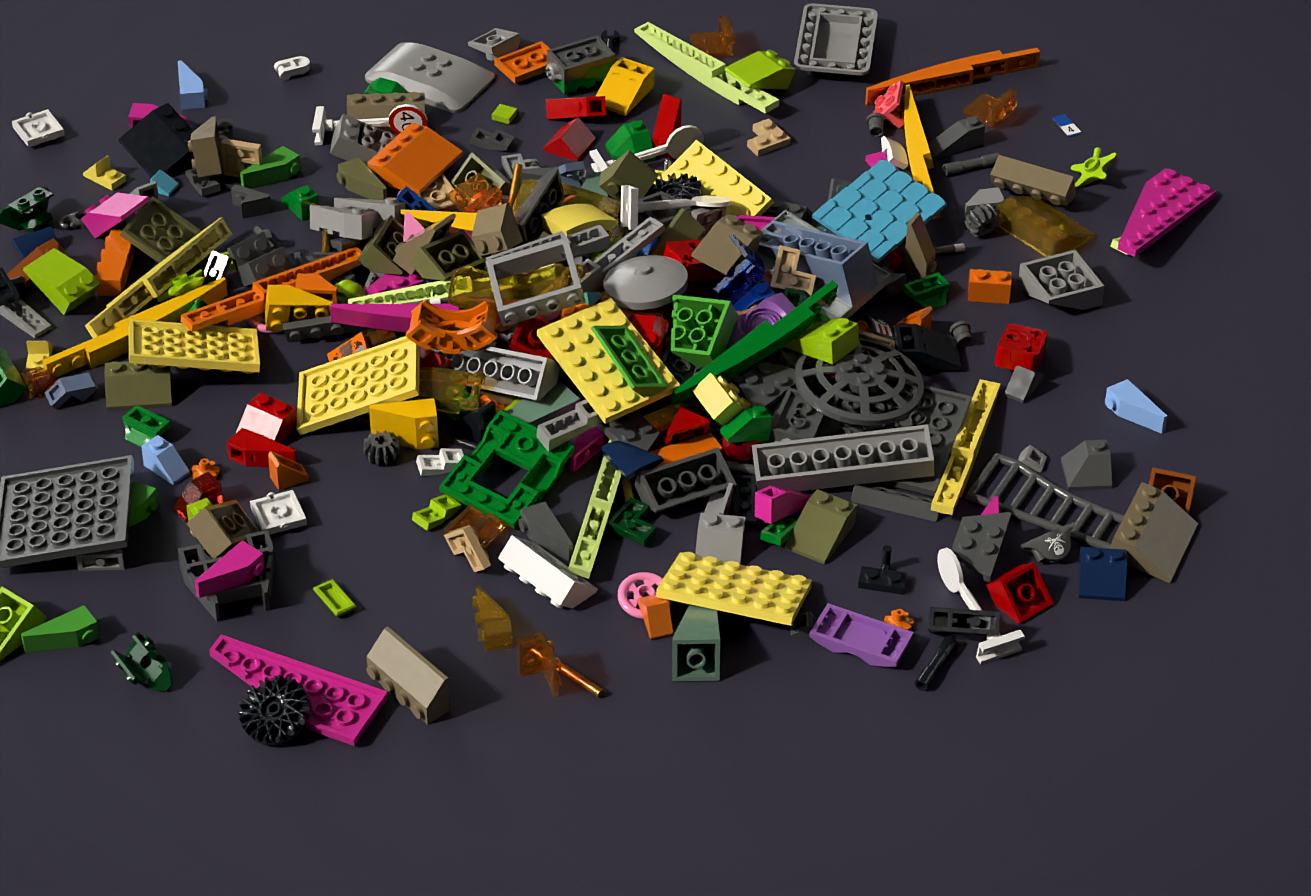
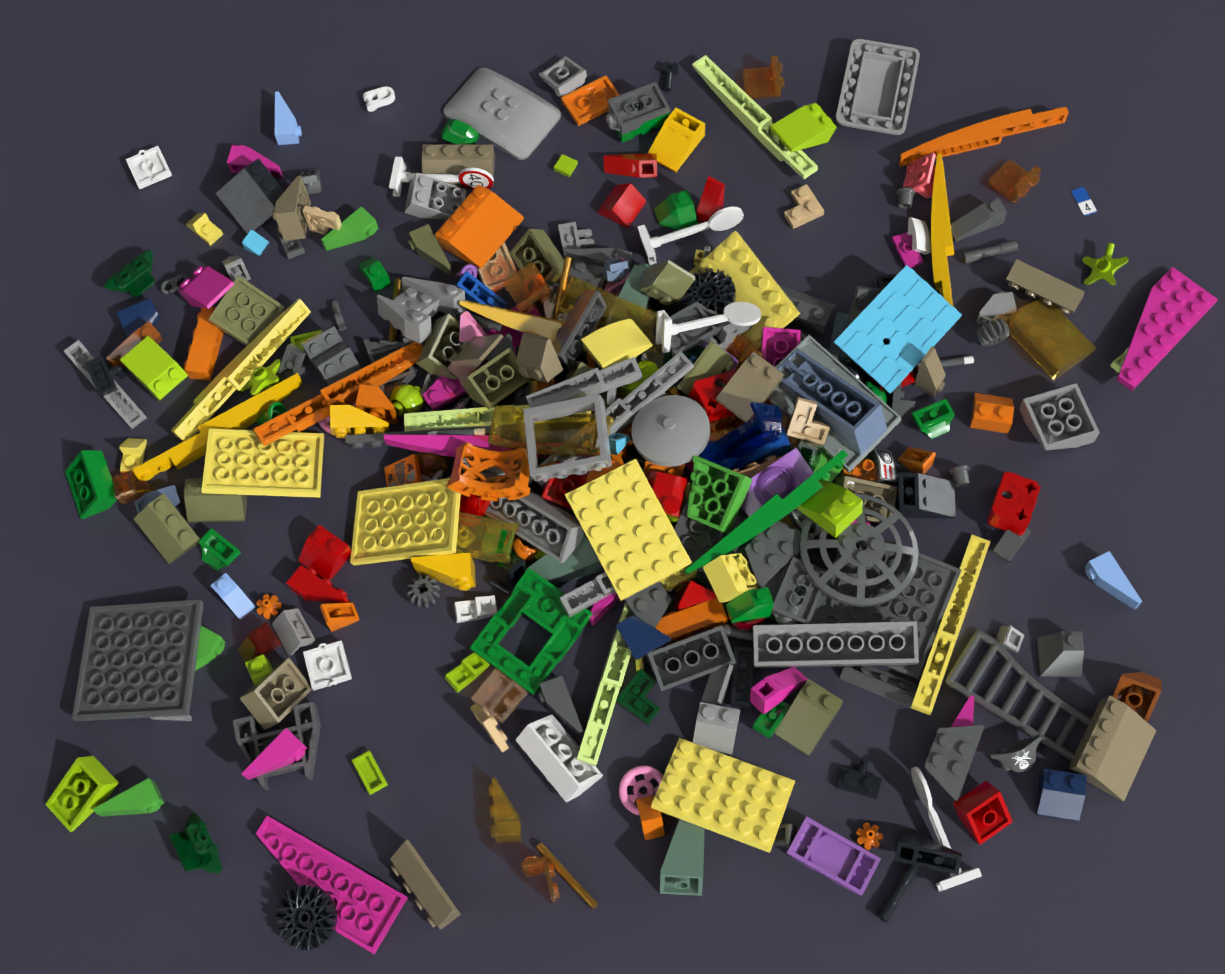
camera: 10 degrees right, 25 degrees up
(87, 405) = (166, 528): none -> olive slope
(236, 485) = (293, 630): none -> light grey panel
(251, 201) = (331, 273): dark grey slope -> none
(498, 141) = (551, 200): dark grey slope -> none
(630, 359) = (646, 539): bright green slope -> none

